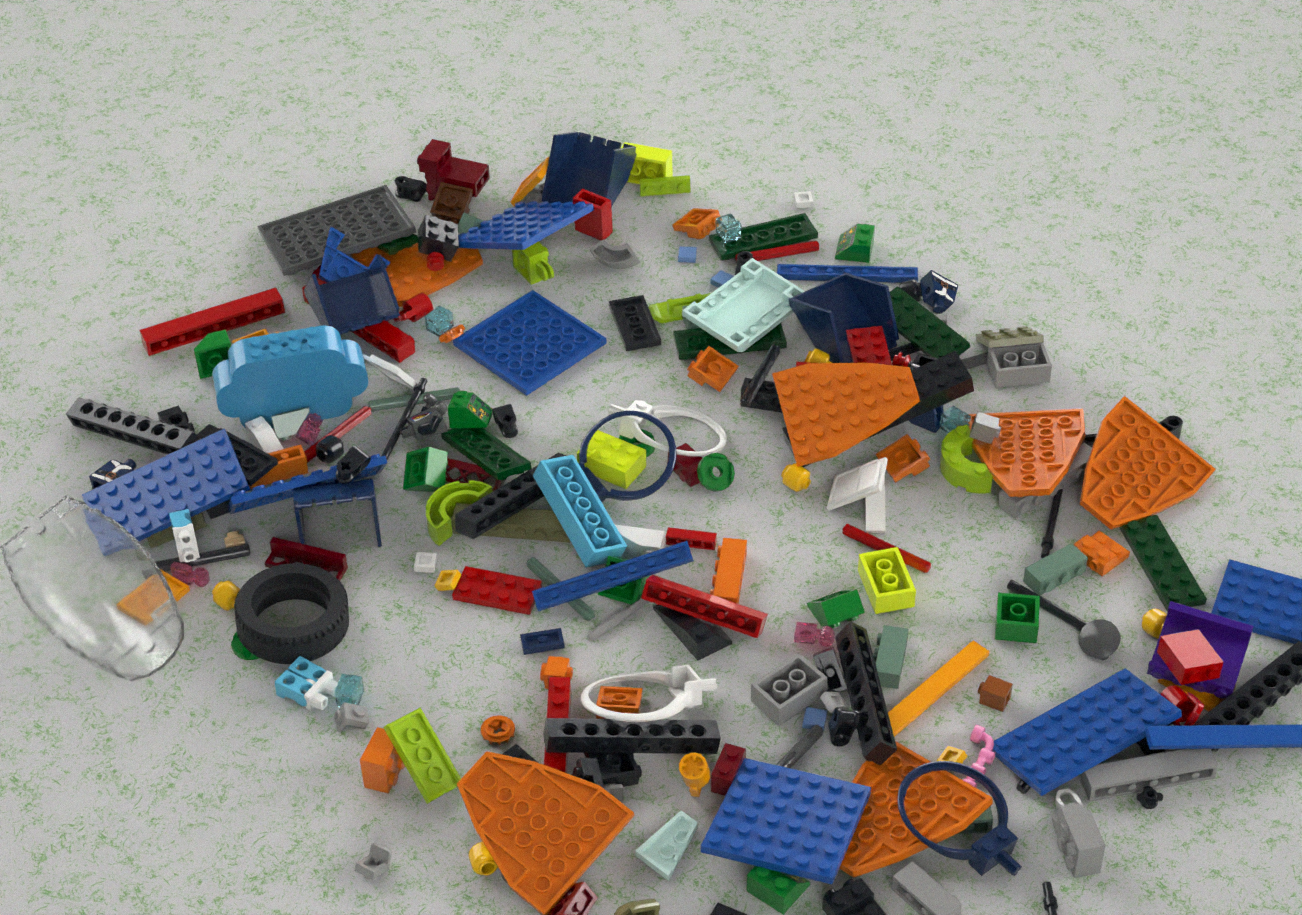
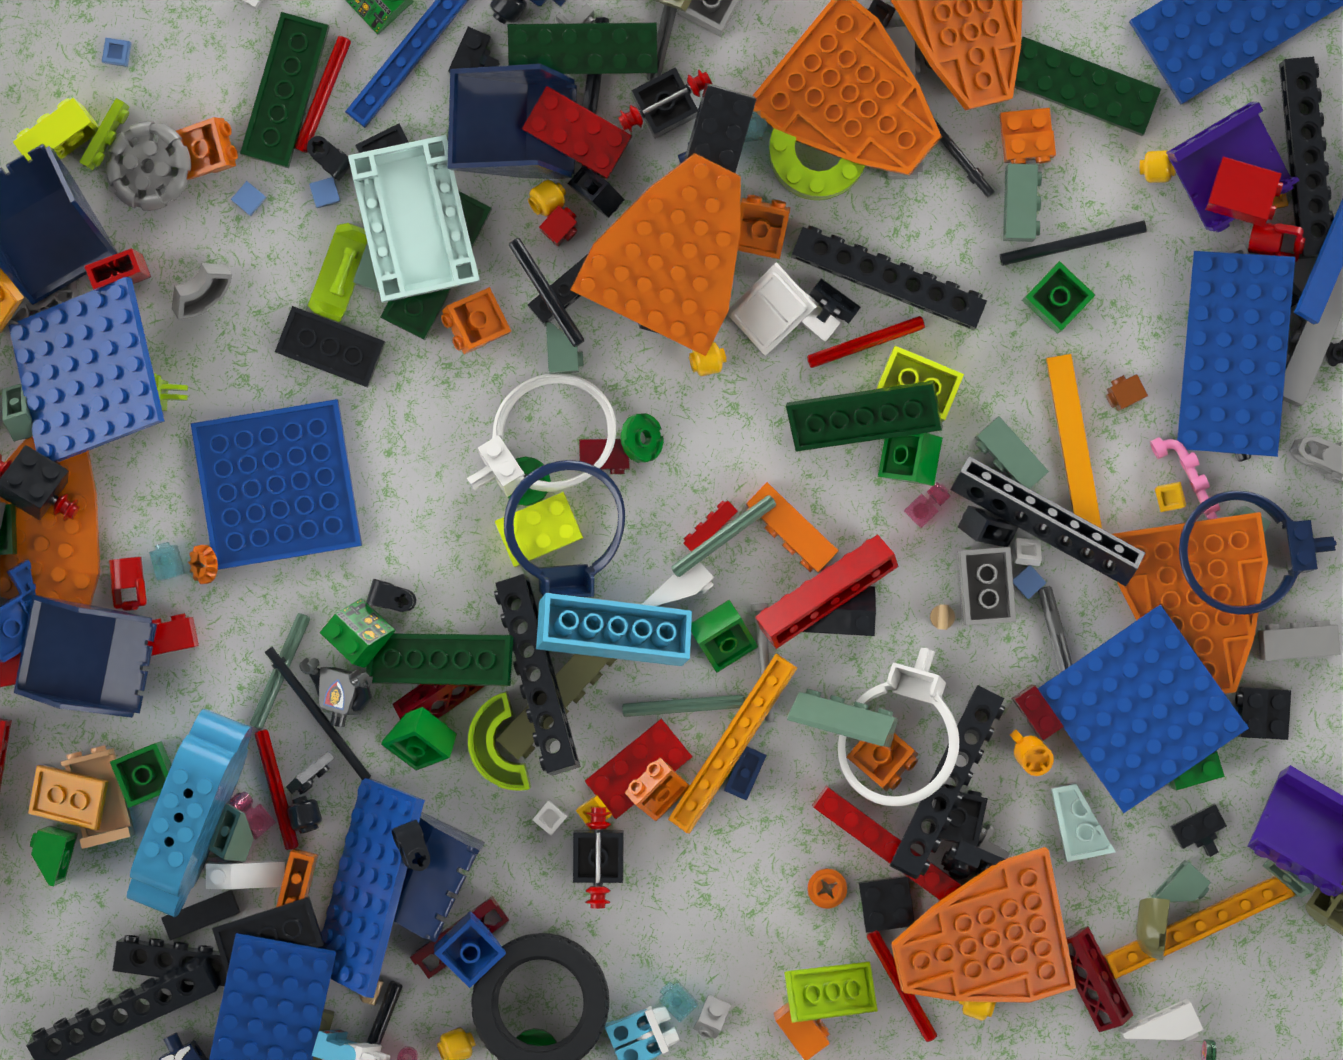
camera: 55 degrees left, 45 degrees up
(303, 546) = (469, 949): none -> blue slope
(358, 434) = (304, 780): none -> hinge
(391, 371) = (242, 683): white piece -> none
(420, 591) = (598, 857): none -> black brick
(448, 829) = (909, 999): none -> red axle
(491, 596) = (657, 789): none -> orange plate
(555, 668) = (798, 787): orange brick -> none
(556, 621) = (732, 743): none -> light orange tile
(612, 576) = (726, 655): blue tile -> none
(625, 660) = (844, 719): none -> sand green slope
(664, 207) = (134, 165): none -> light grey plate
(691, 534) = (723, 536): none -> sand green axle
(715, 172) = (116, 52): none -> medium blue tile
(728, 228) = (255, 128): clear light blue brick -> none
(730, 414) = (561, 353): none -> sand green slope
(743, 685) = (942, 617): none -> tan plate
(837, 558) = (864, 416): none -> dark green plate
(842, 726) = (1067, 570): black piece -> none
(894, 512) = (833, 302): none -> black hinge
(938, 535) = (973, 301): none -> black brick
(985, 428) = (800, 120): light grey brick -> none
(1099, 639) = (1136, 239): dark grey dish -> none

